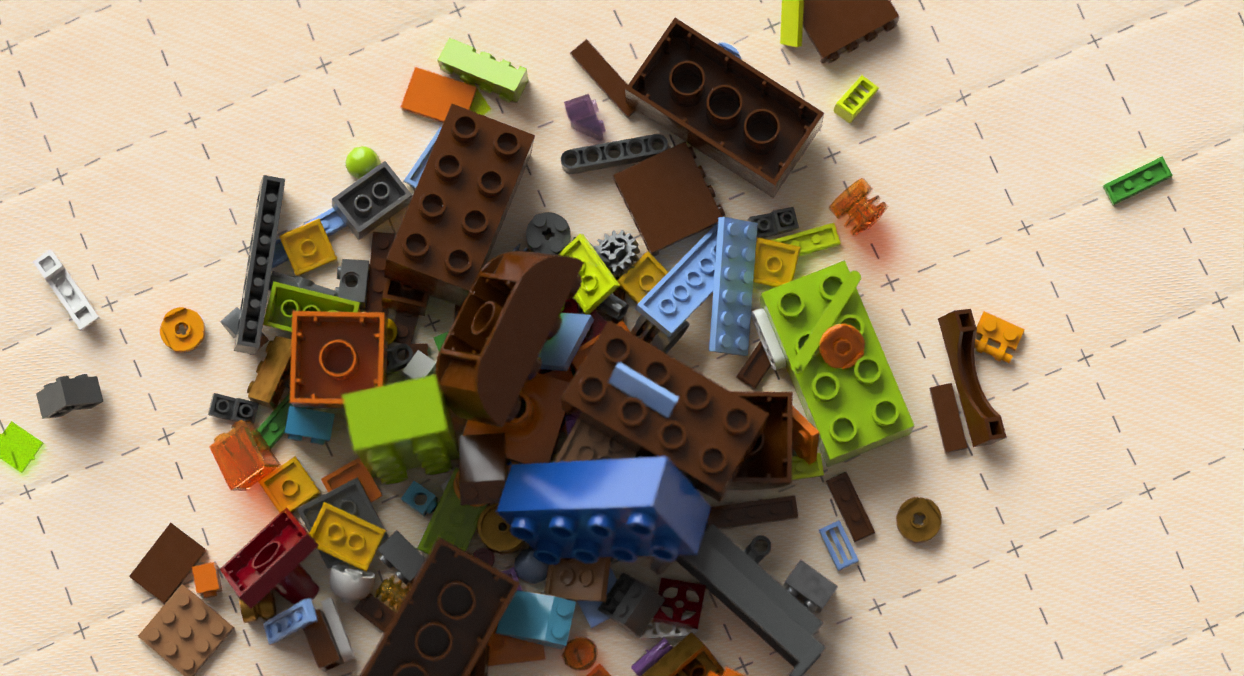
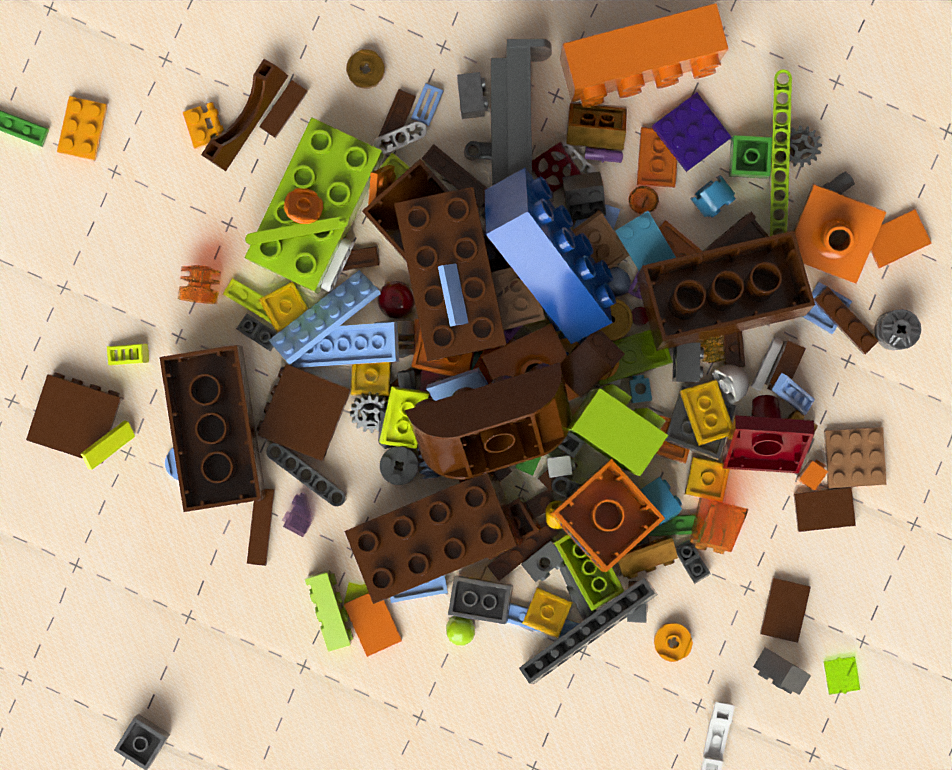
camera: 135 degrees left, 10 degrees up
(117, 450) = (785, 610): none -> reddish brown tile
(696, 357) = (396, 299): none -> dark red cylinder
(831, 511) = (410, 127): none -> white beam
(1087, 233) = (82, 128): none -> light orange plate

